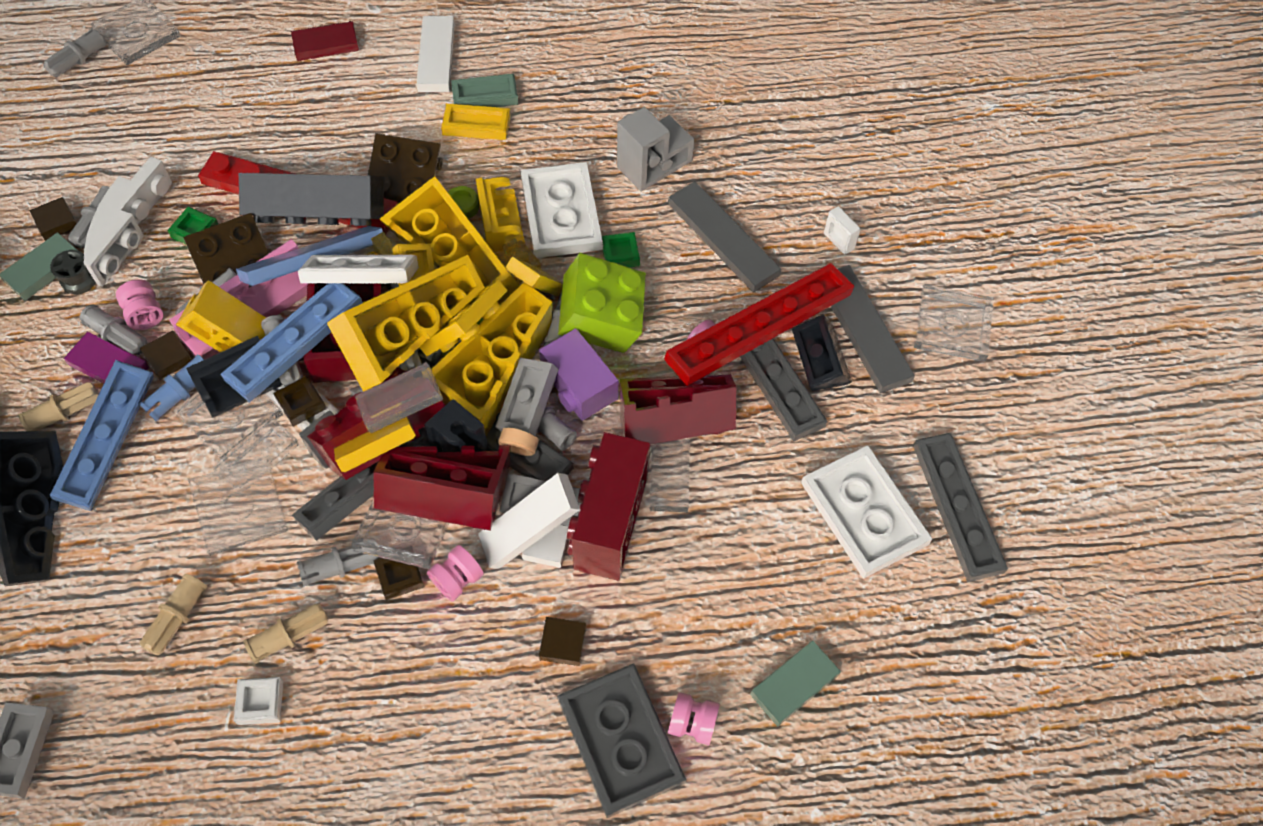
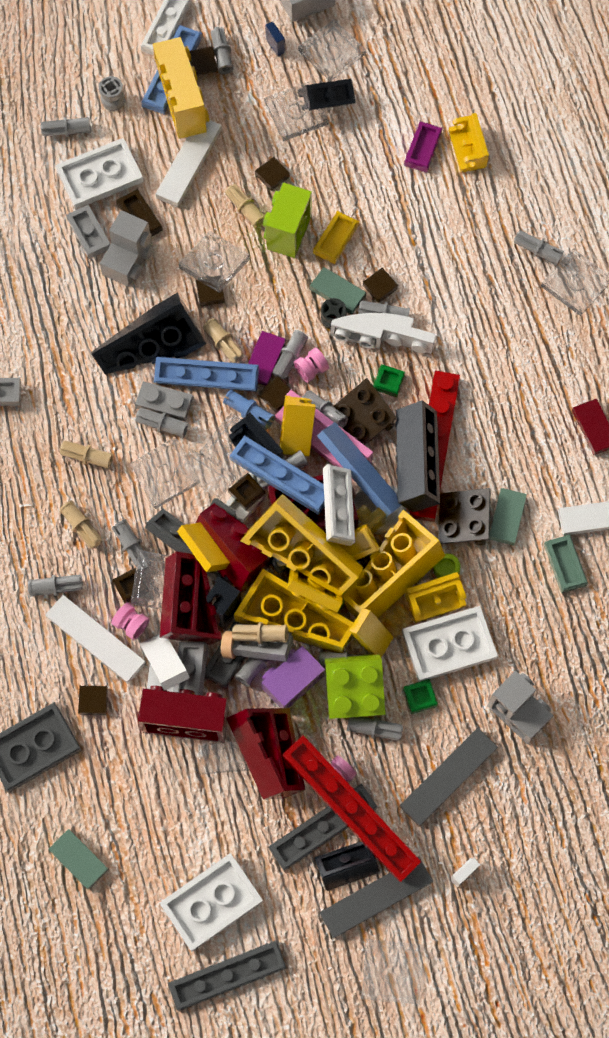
camera: 85 degrees right, 10 degrees up
(124, 499) = (163, 400): none -> light grey plate
(156, 503) = (162, 422): none -> light grey axle
(258, 700) = (37, 520): white tile -> none
(373, 680) = (55, 585): none -> light grey axle
(398, 397) = (233, 555): clear tile -> none
(408, 127) = (507, 516): none -> sand green tile
(468, 631) = (95, 639): none -> white tile
(476, 121) = (532, 563): yellow tile -> none
(514, 390) = (260, 633): none -> tan axle
(655, 298) = (375, 728): none -> light grey axle
(703, 720) = (45, 791): bright pink wheel -> none

